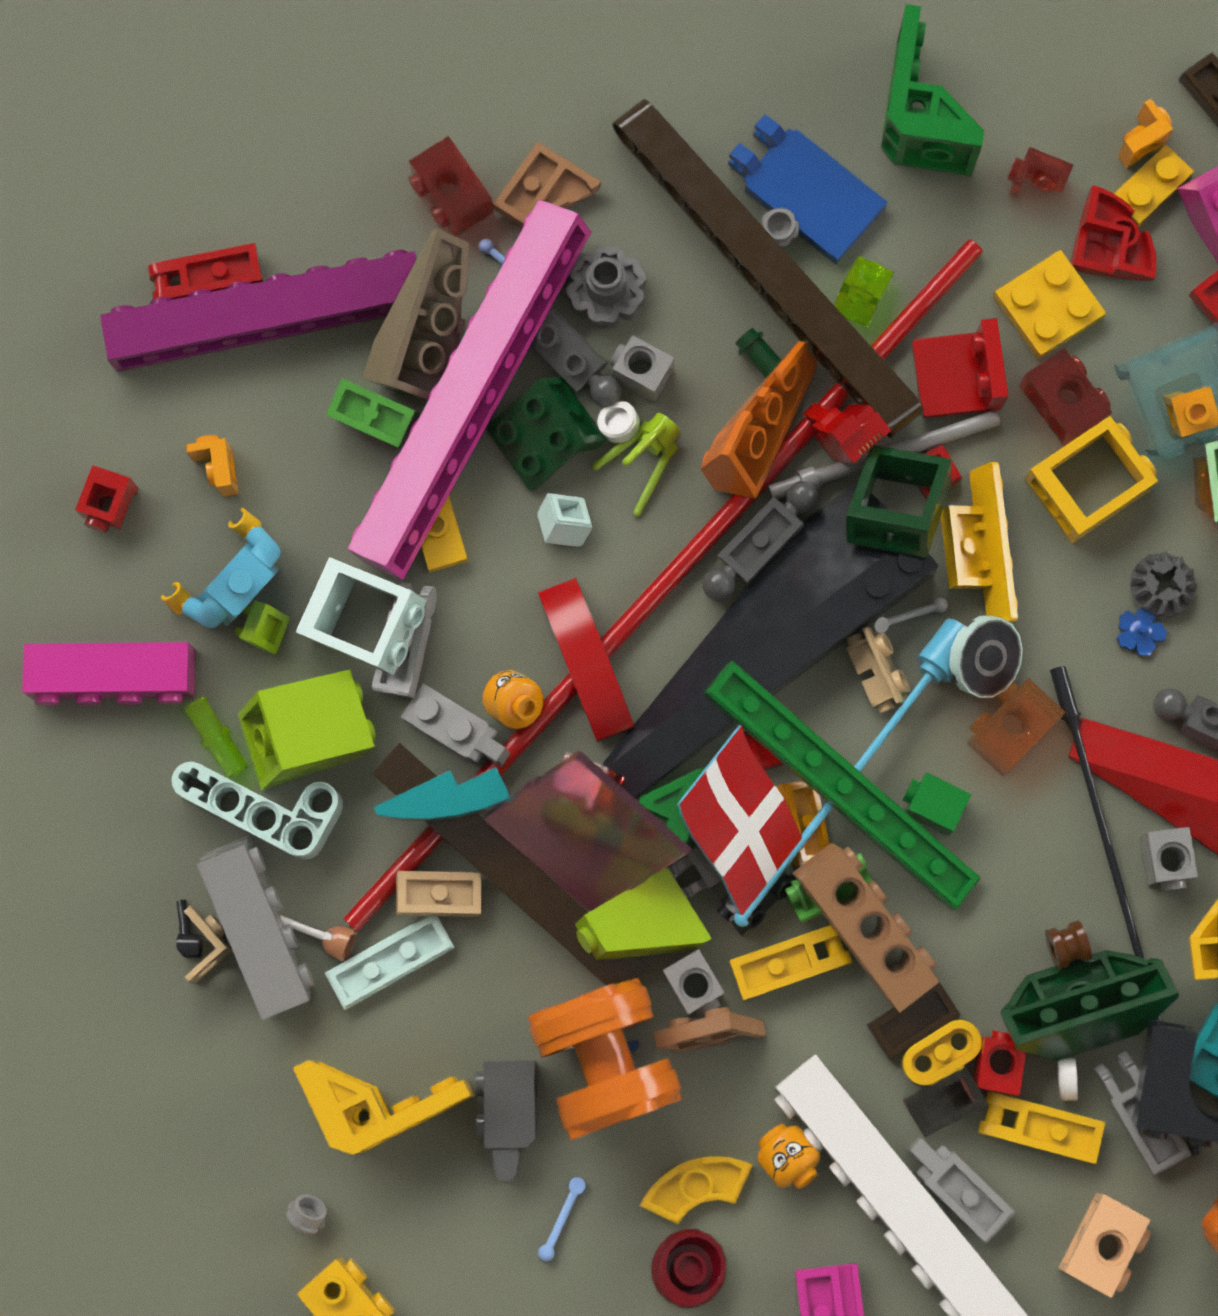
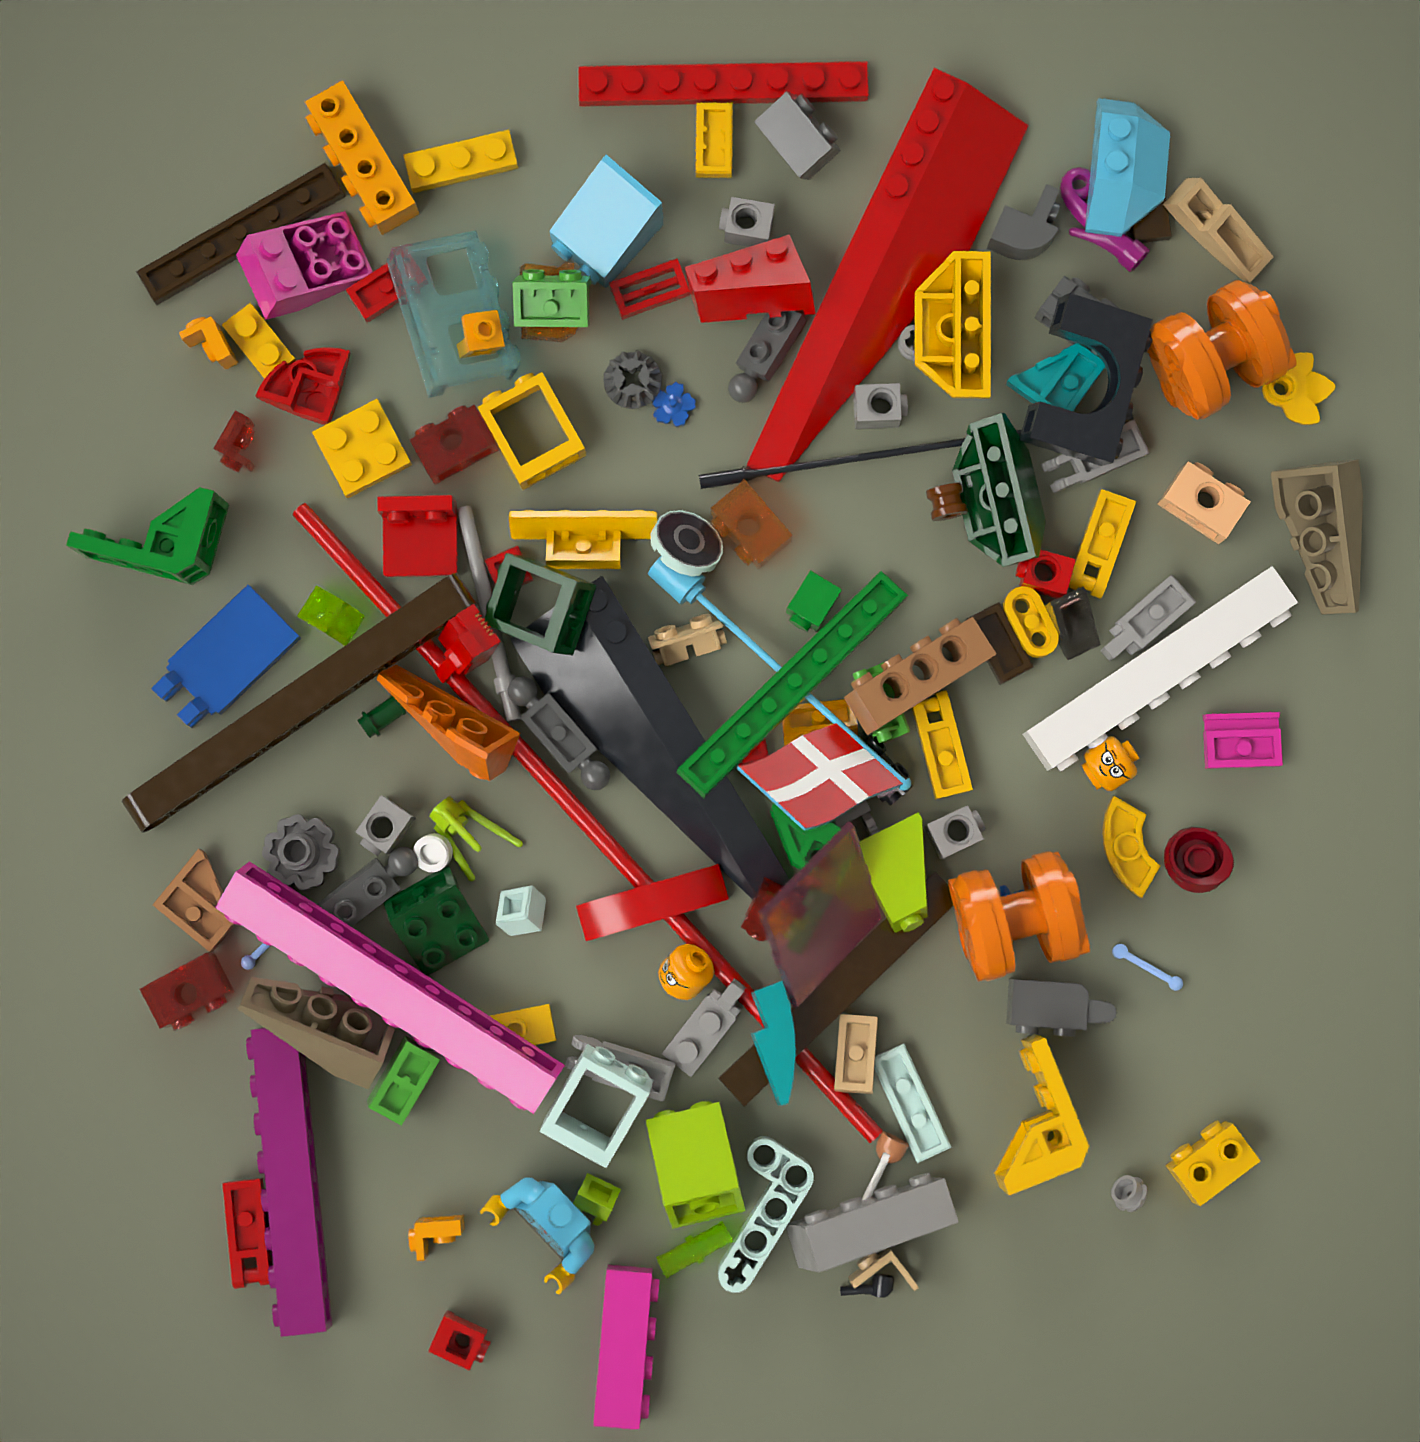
camera: 90 degrees left, 5 degrees up
(714, 1030) = (996, 814): medium nougat wing -> none
(786, 219) = (253, 681): light grey plate -> none
(881, 624) = (647, 632): light grey hinge -> none
(1067, 1079) = (1062, 516): white tile -> none

